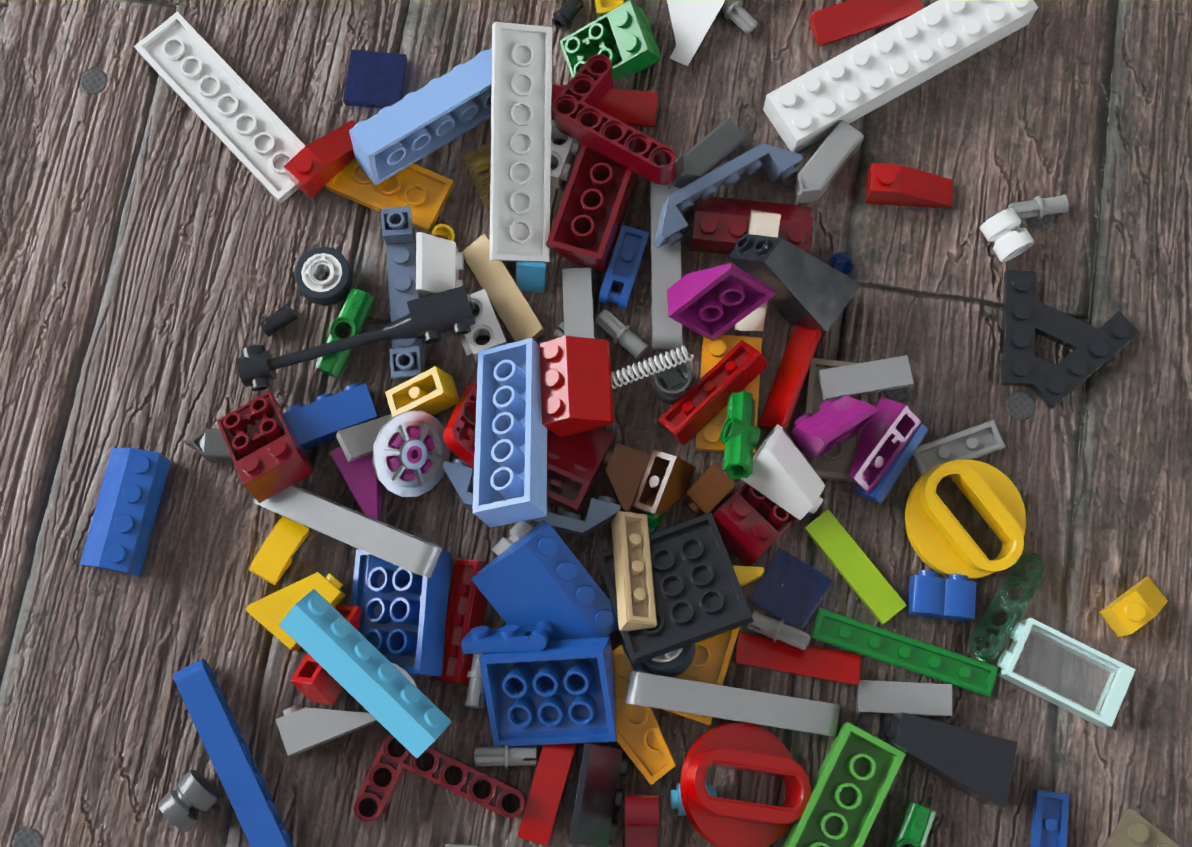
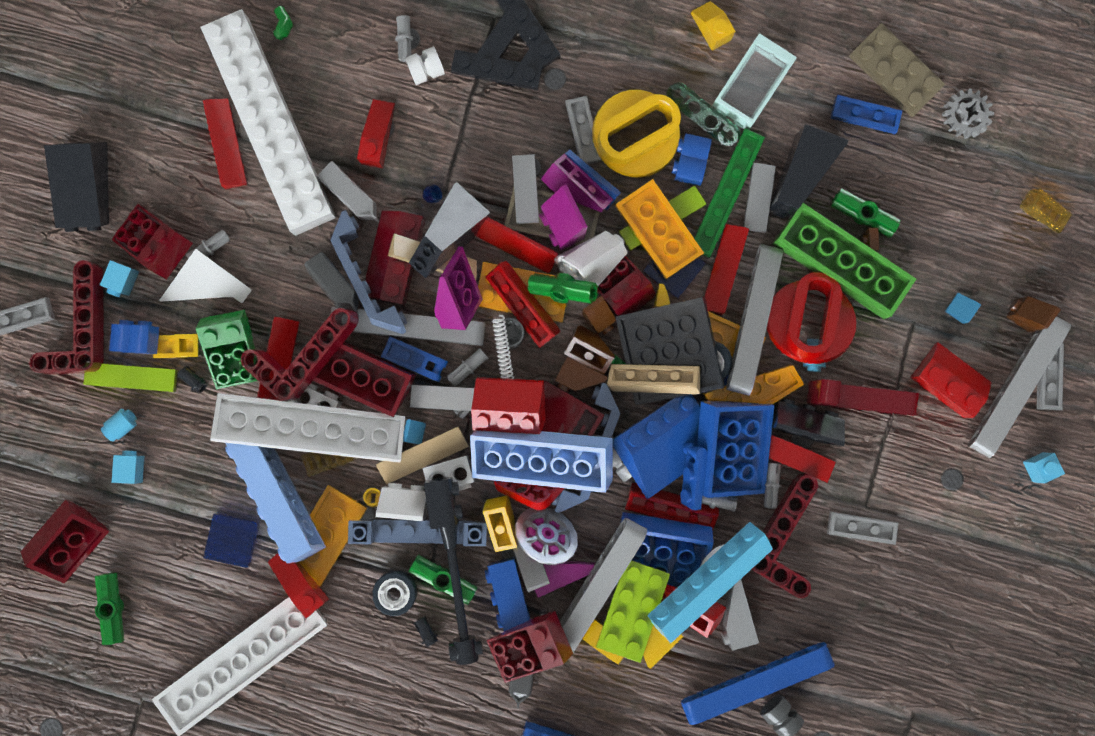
camera: 90 degrees left, 10 degrees up
(341, 576) = (626, 622): none -> lime plate
(779, 631) = (703, 280): light grey axle -> none
(838, 560) = (659, 229): none -> light orange plate
(1027, 63) = (284, 25): none -> green arm

